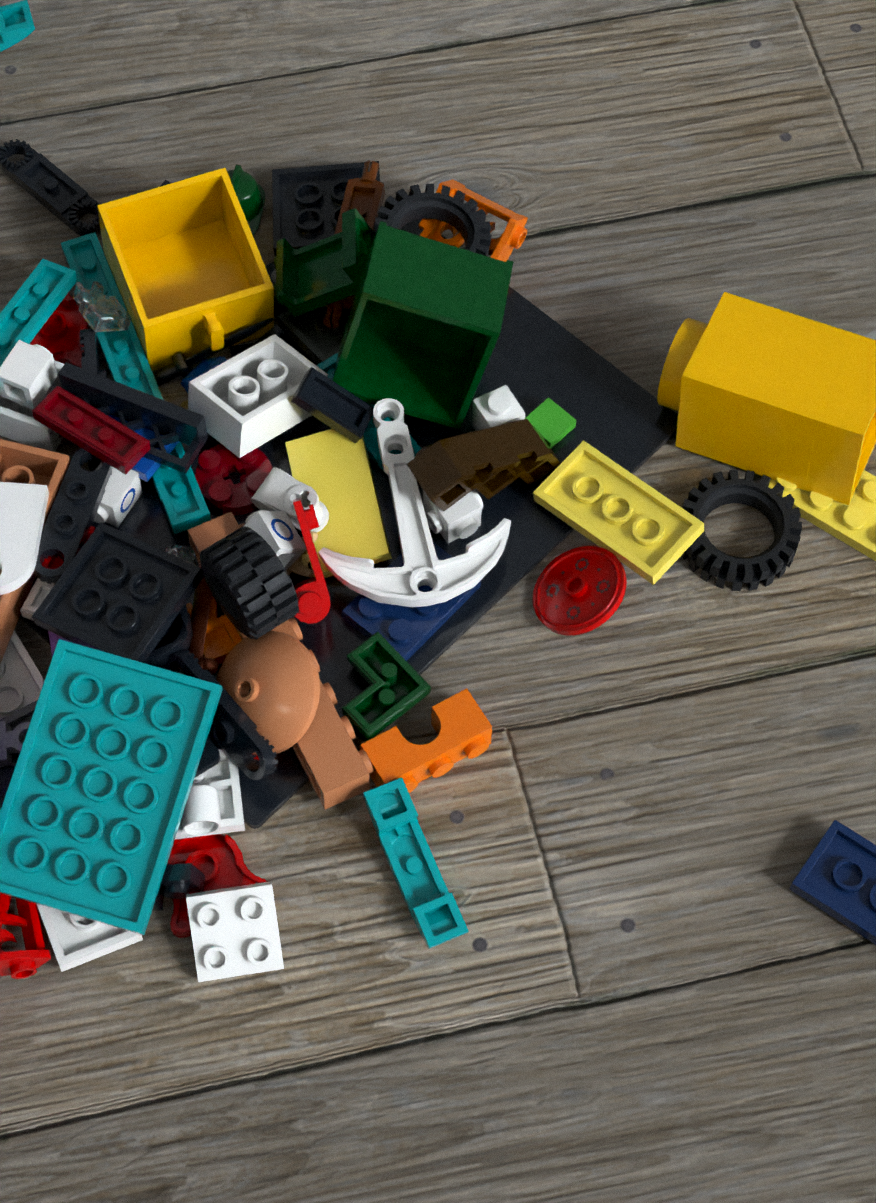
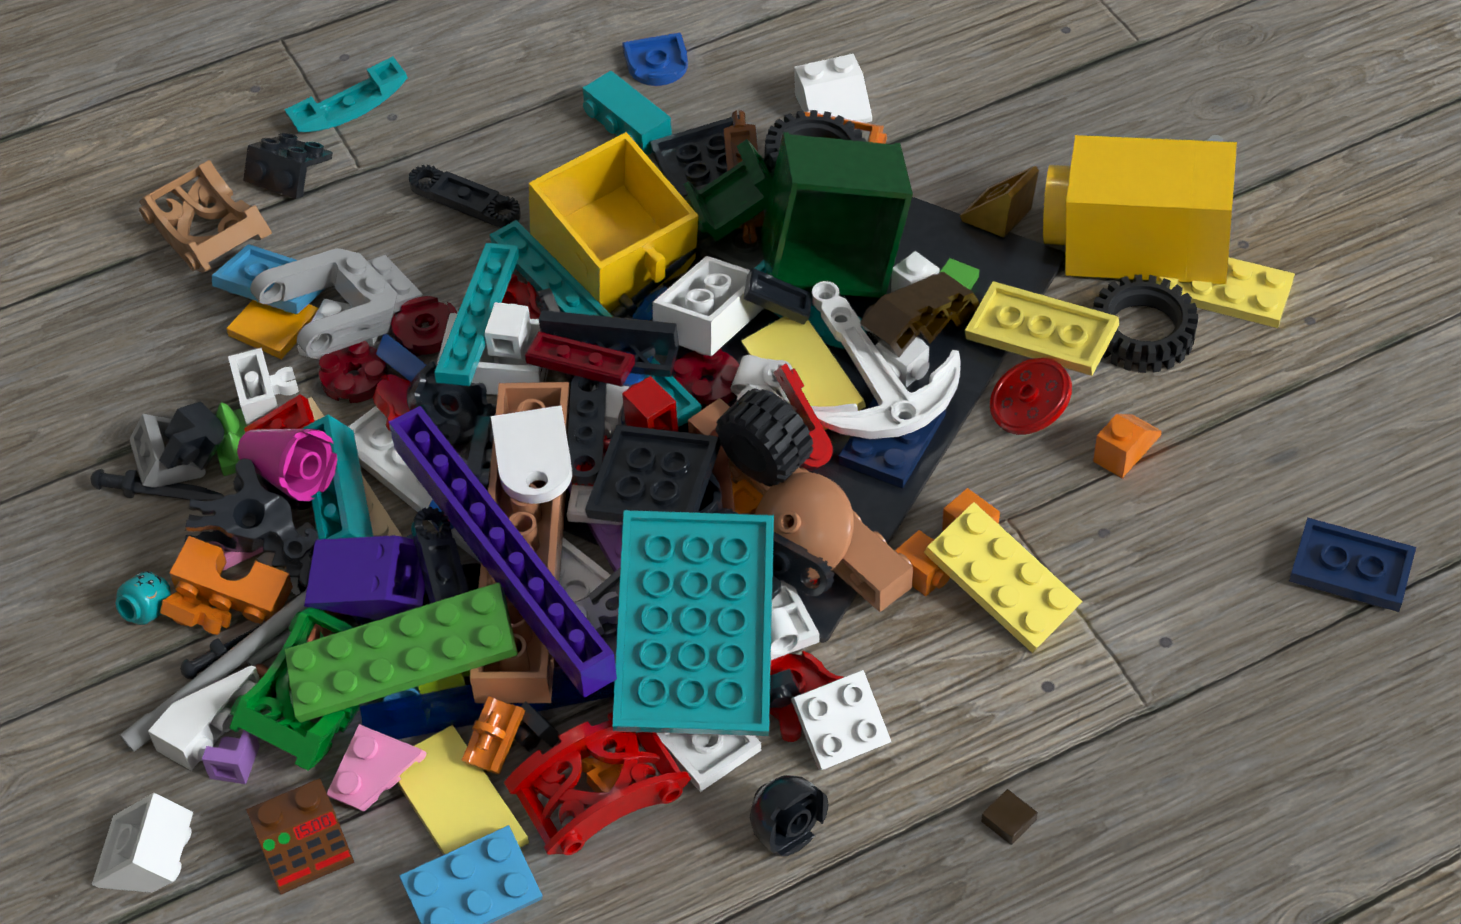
camera: 10 degrees left, 10 degrees down
(101, 311) = (549, 273): clear plate -> none
(136, 1029) = (786, 813): none -> black cylinder
(147, 511) = (649, 406): none -> red brick
(257, 127) = (625, 110): none -> teal brick
(318, 67) = (656, 59): none -> blue tile
(381, 1092) = (1009, 816): none -> dark brown tile
(392, 688) = (902, 500): dark green brick -> none
(413, 864) = (969, 635): teal slope -> none
(469, 805) = (1003, 577): none -> light yellow plate
(494, 157) = (833, 87): none -> white slope
(632, 343) = (1003, 204): none -> pearl gold slope
(666, 671) = (1124, 443): none -> orange slope

